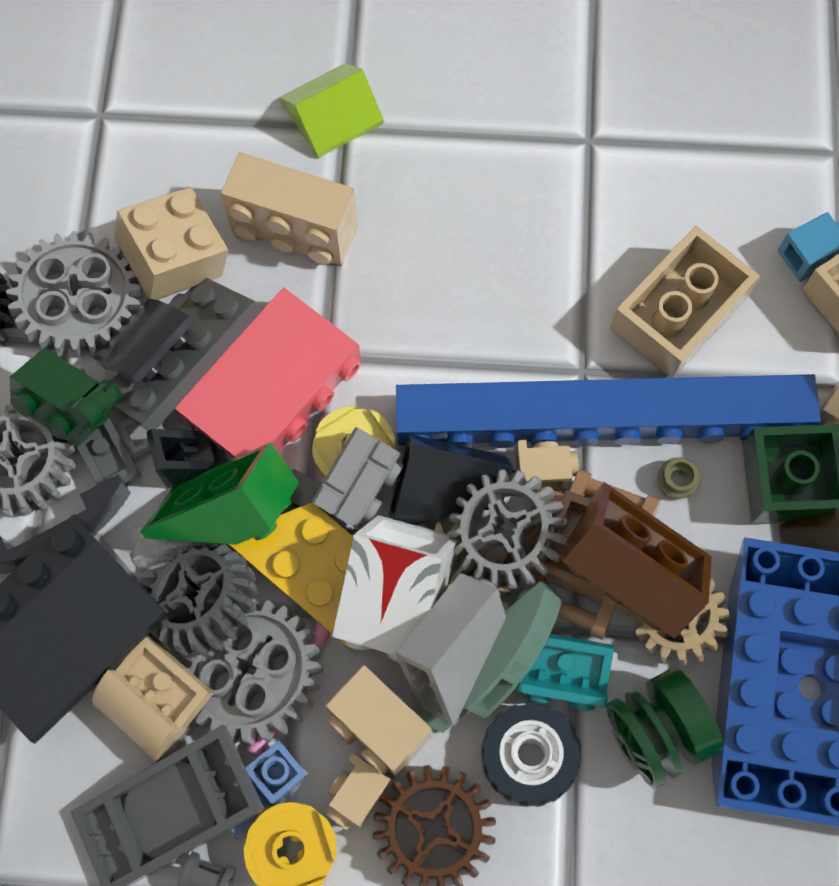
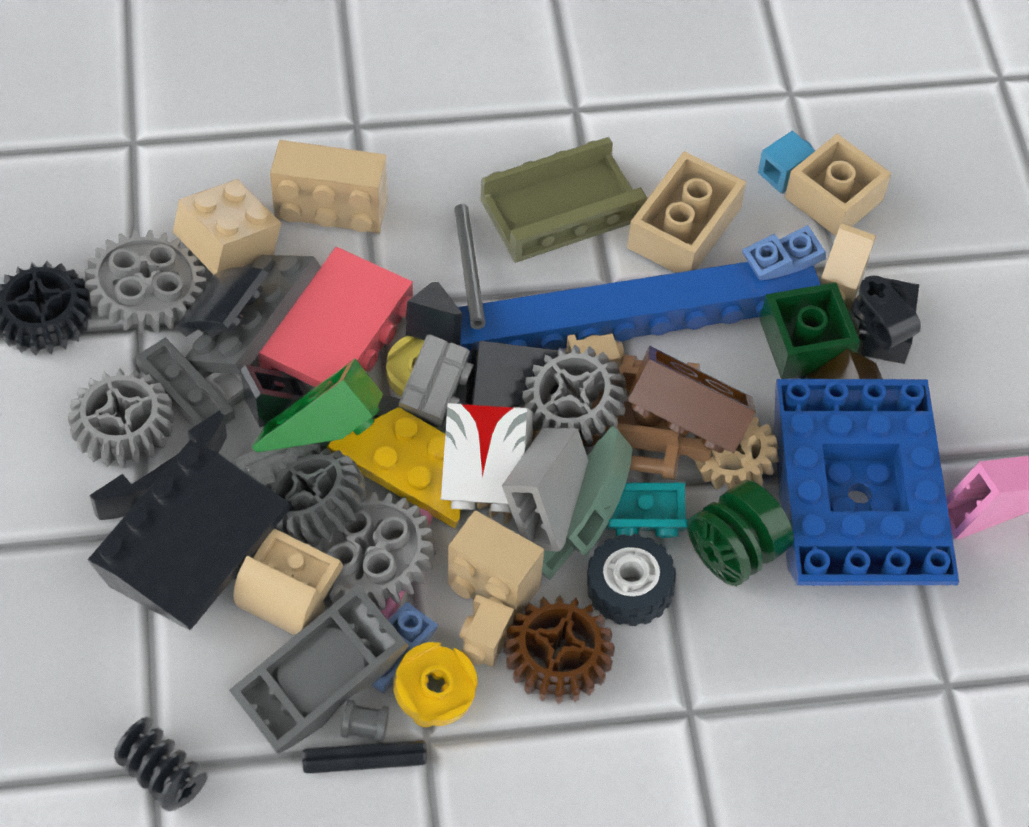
camera: 15 degrees left, 15 degrees down
(62, 397) = (159, 353): dark green hinge -> none
(333, 108) = (347, 109): lime slope -> none
(372, 392) = (433, 314): none -> black slope
(426, 334) = (469, 267): none -> dark grey piece
(548, 257) = (560, 199): none -> olive panel
(687, 470) = (711, 344): olive plate -> none
(786, 377) = (784, 256): none -> medium blue slope

